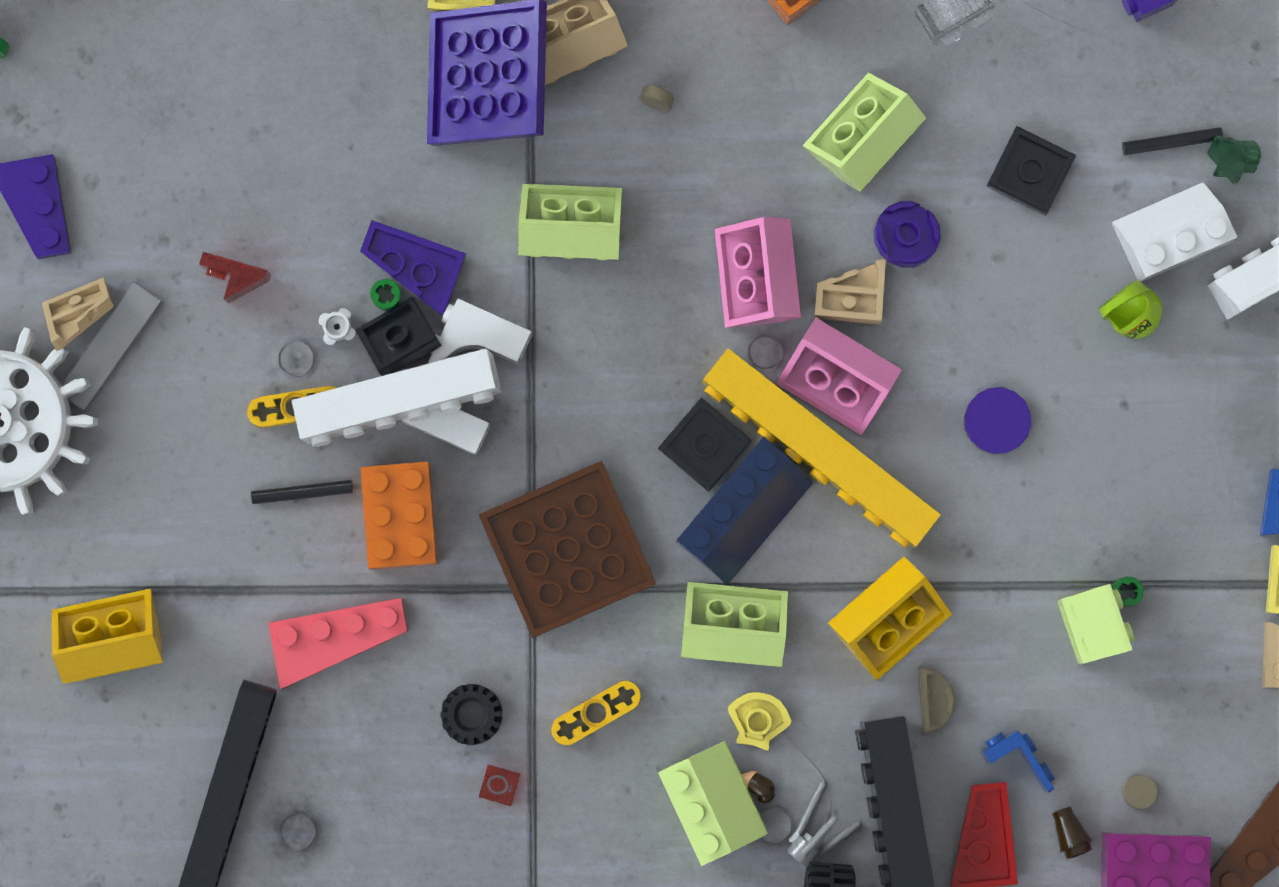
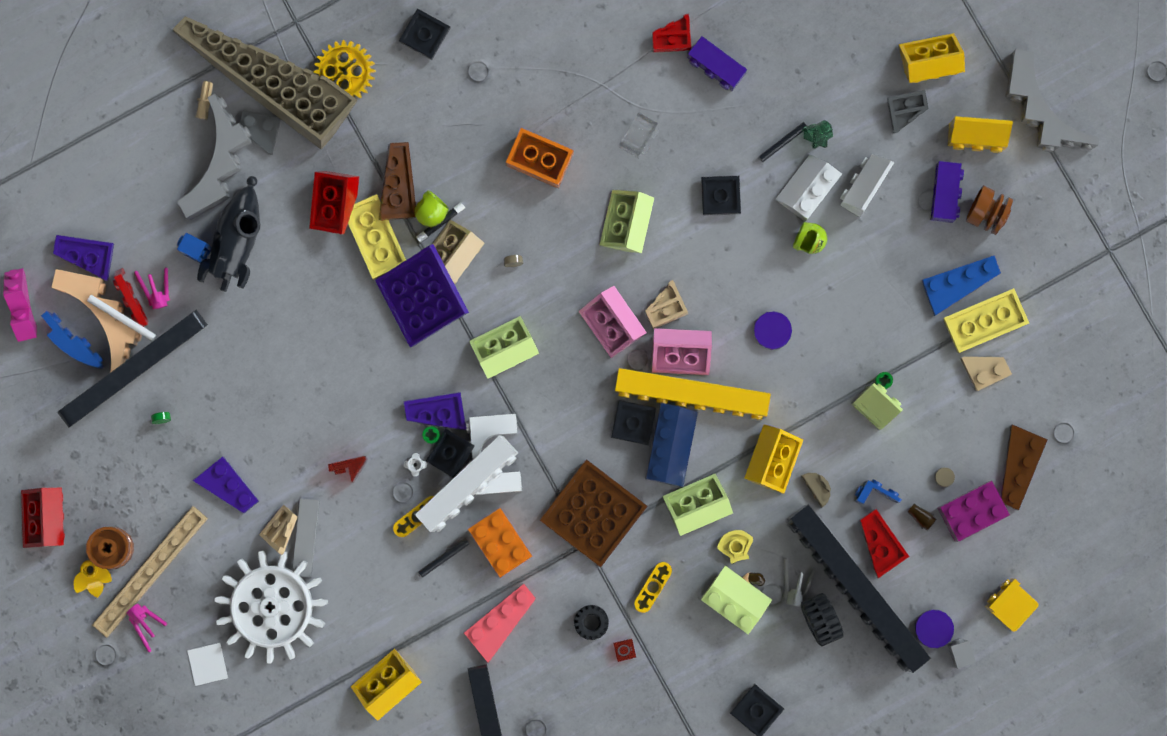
camera: 30 degrees left, 0 degrees up
(906, 234) = (676, 261): dark purple tile -> none

